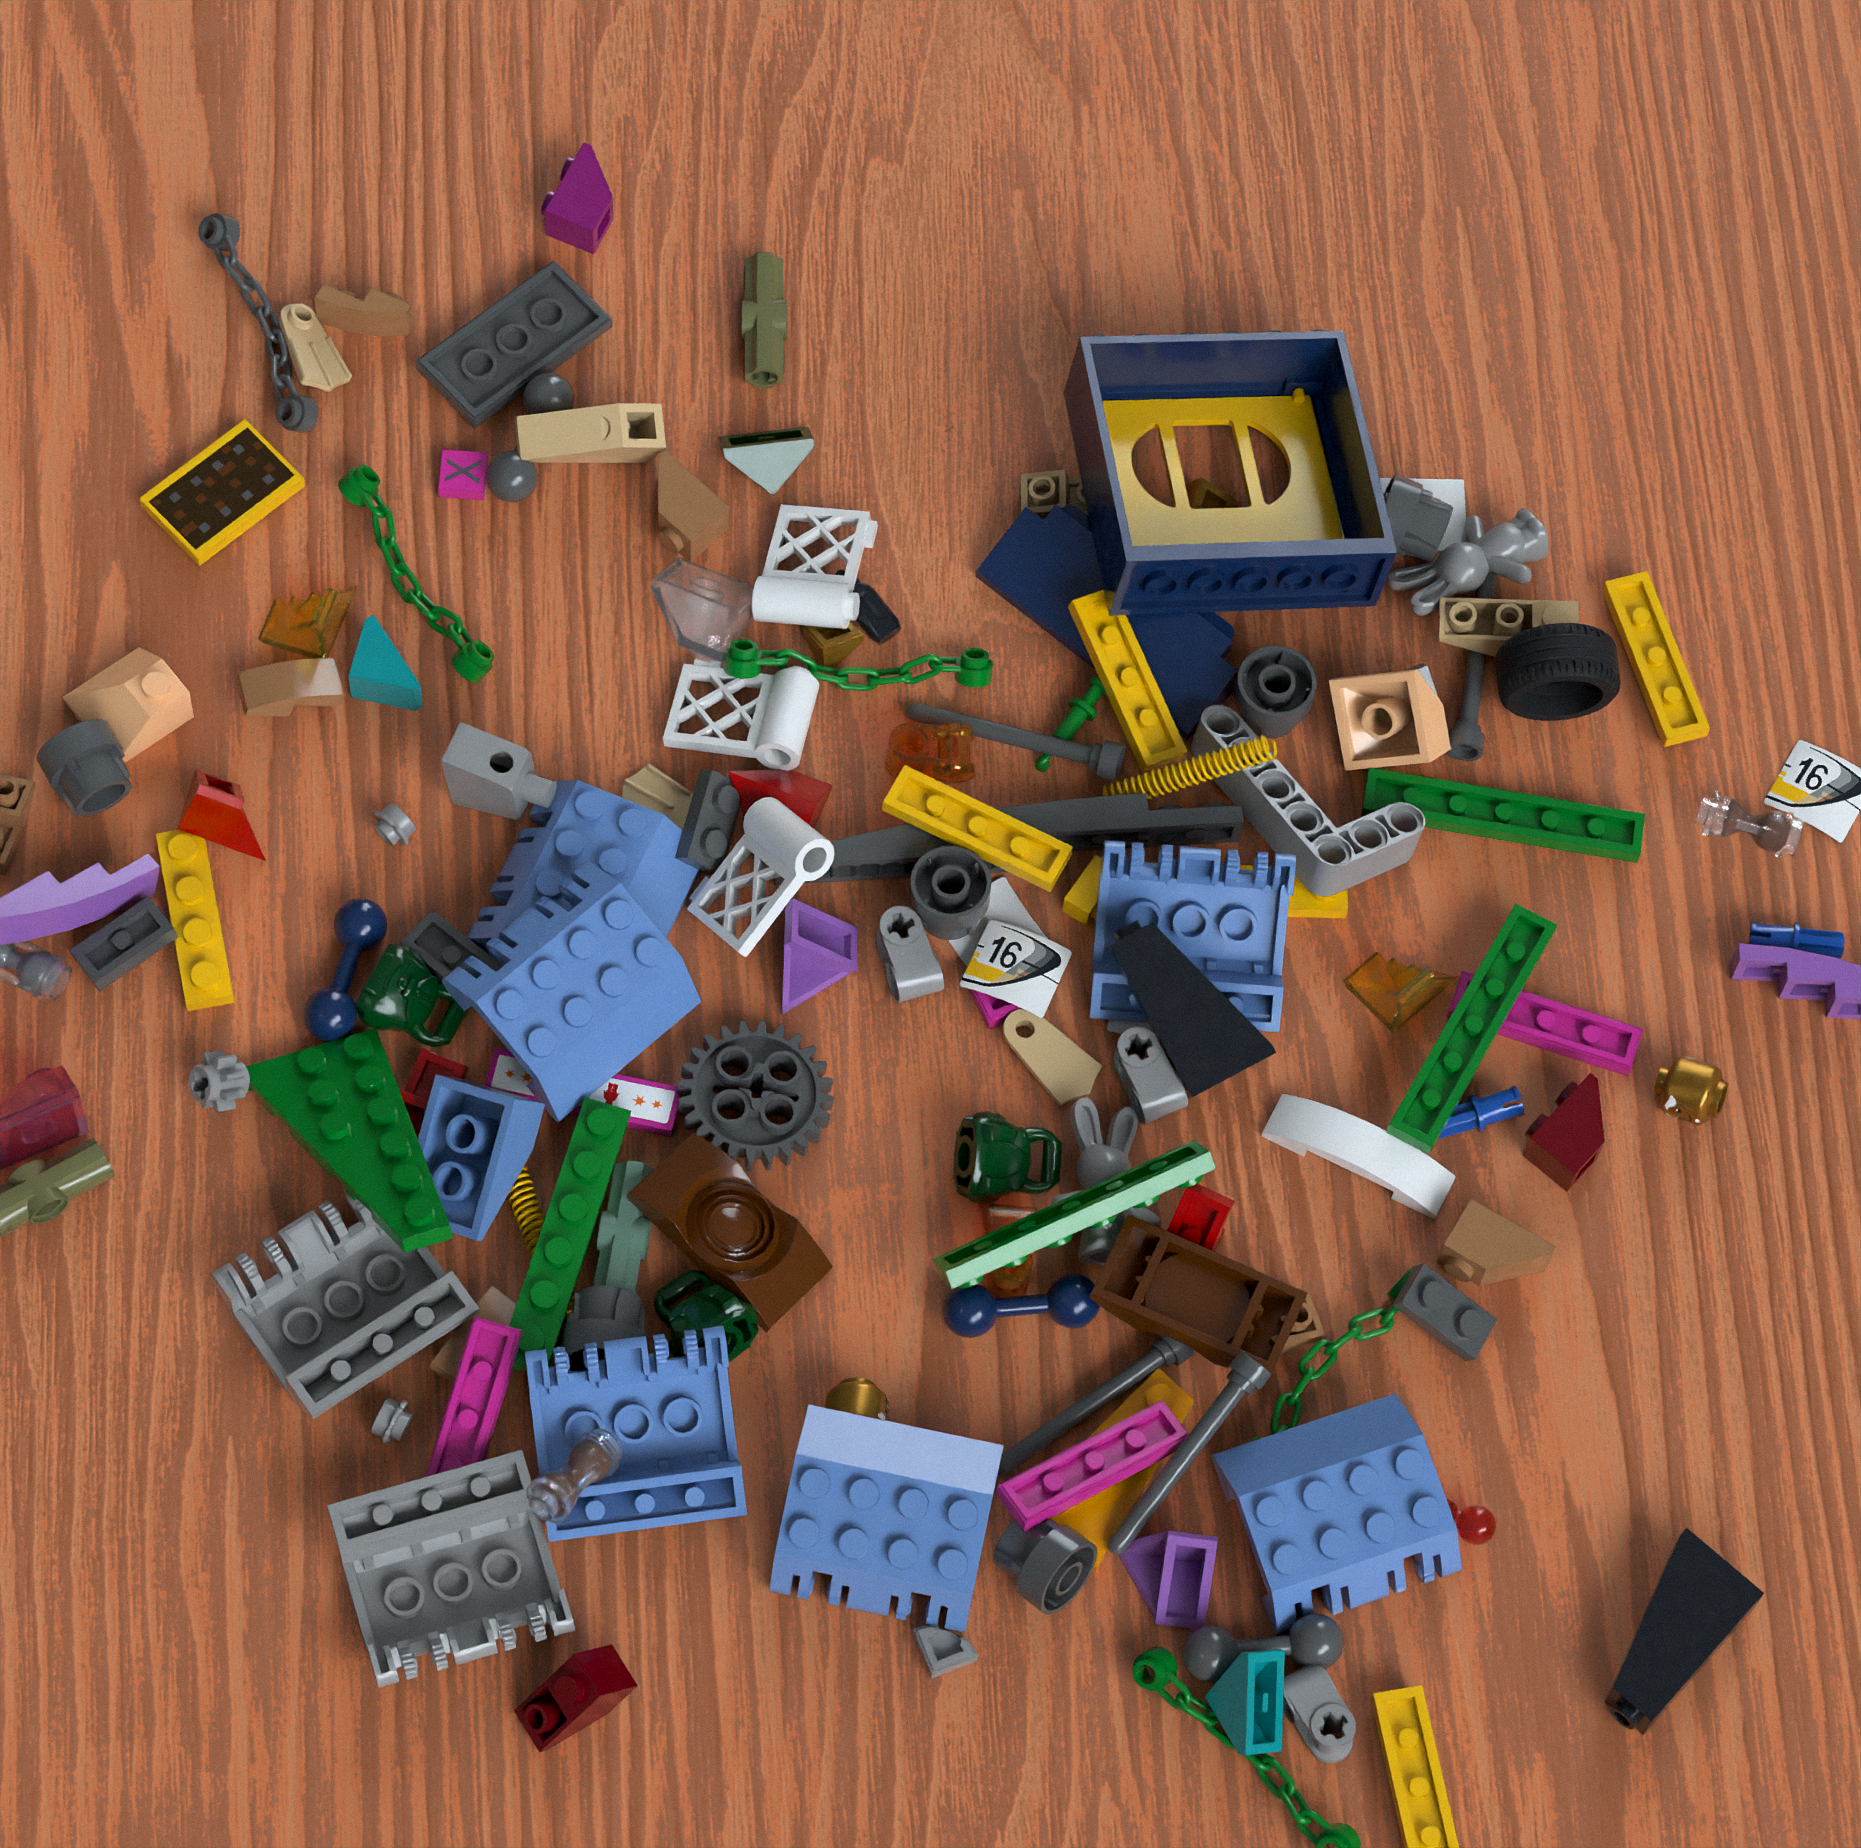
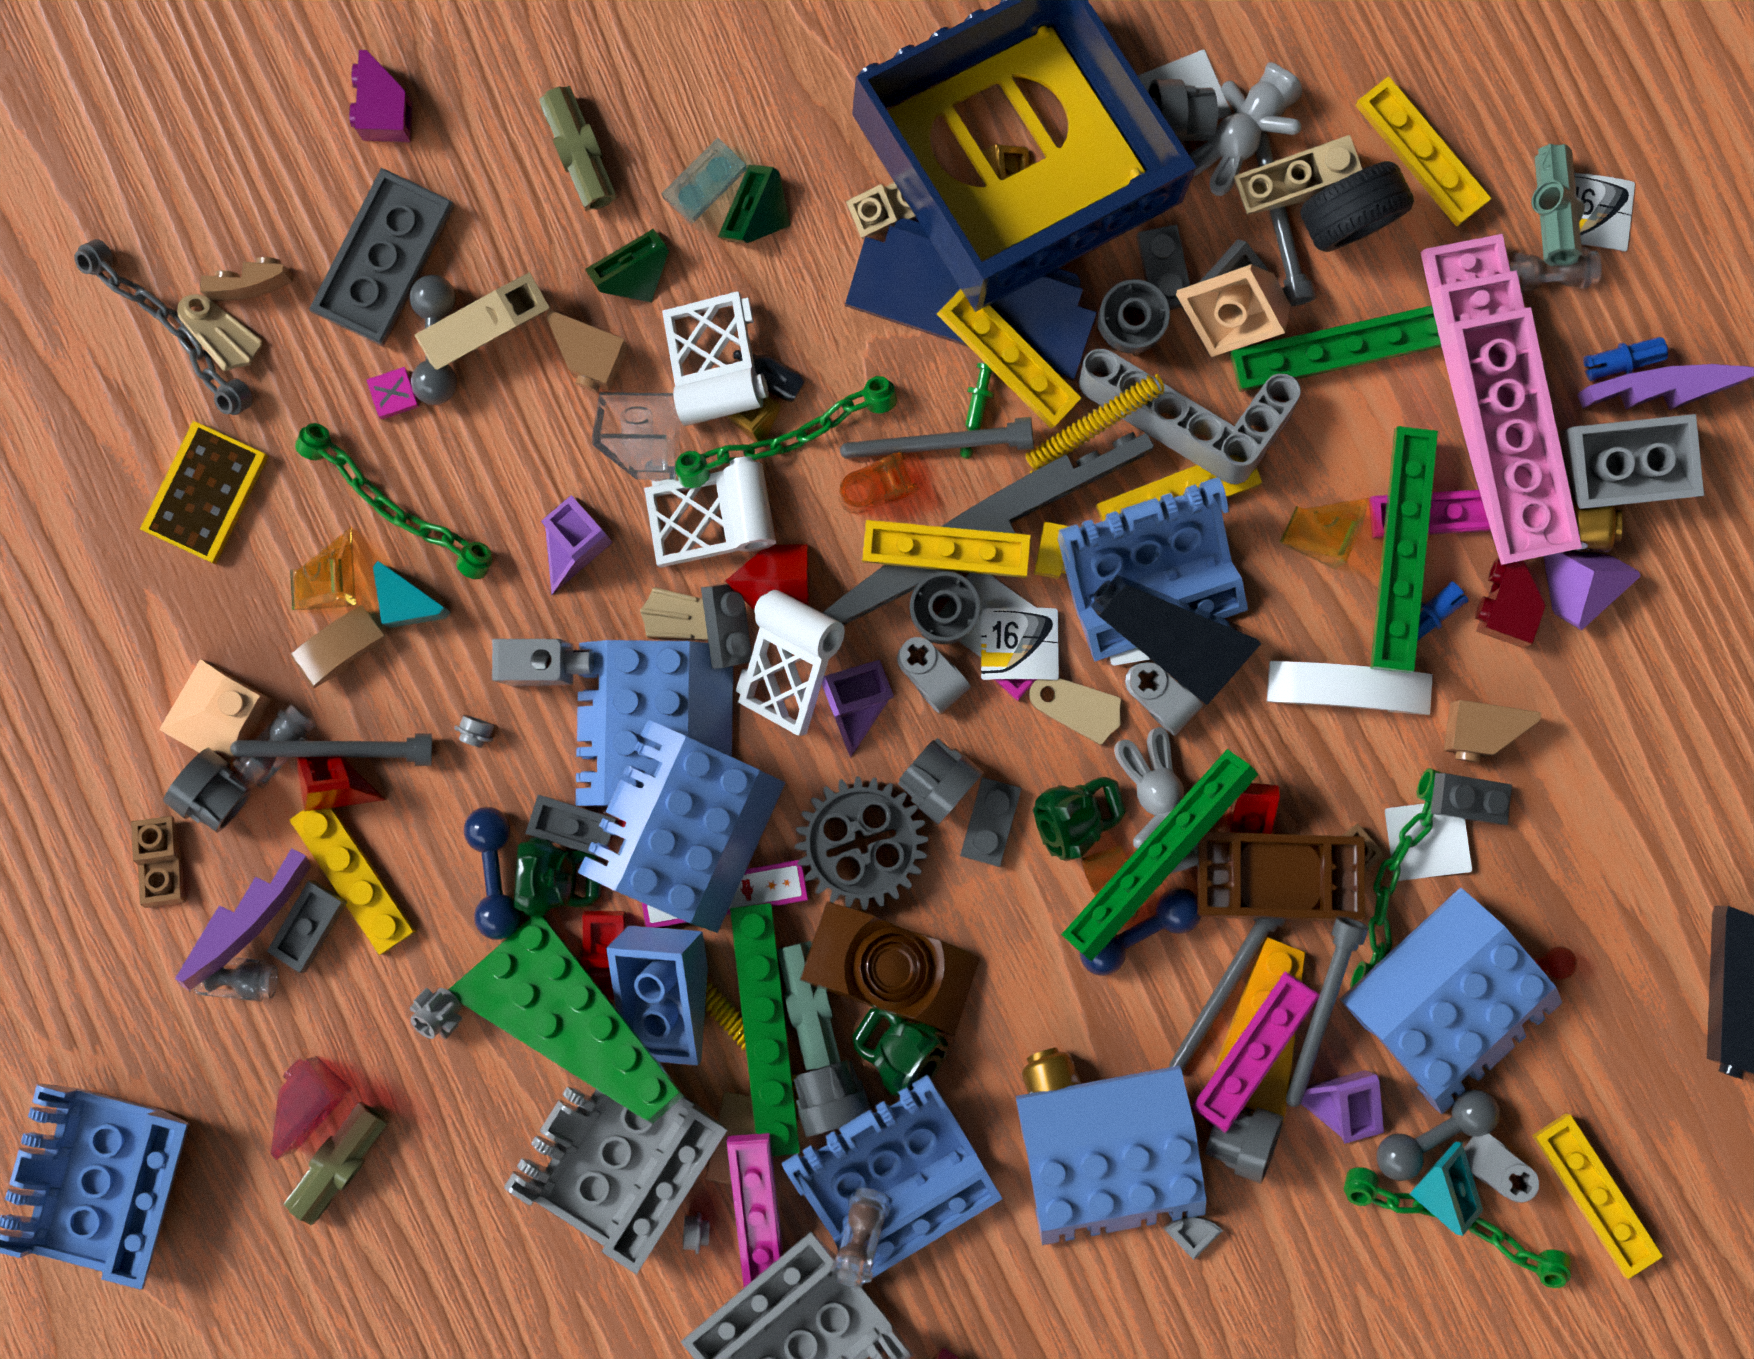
camera: 15 degrees left, 20 degrees up
(176, 756) = (287, 726): none -> clear piece
(322, 817) = (415, 749): none -> dark grey piece
(585, 686) = (571, 541): none -> medium lavender slope
(869, 1061) = (939, 779): none -> dark grey piece
(881, 400) = (704, 181): none -> clear light blue plate
(905, 1135) = (990, 822): none -> dark grey plate
(927, 445) = (757, 207): none -> dark green slope
(1332, 656) = (1164, 261): none -> dark grey plate
(1386, 1361) = (1438, 853): none -> white sticker
(1639, 921) = (1501, 398): none -> bright pink slope
(1659, 1145) = (1585, 584): none -> medium lavender slope
(1760, 1032) = (1633, 461): none -> light grey slope
(1777, 758) = (1558, 205): none -> sand green piece

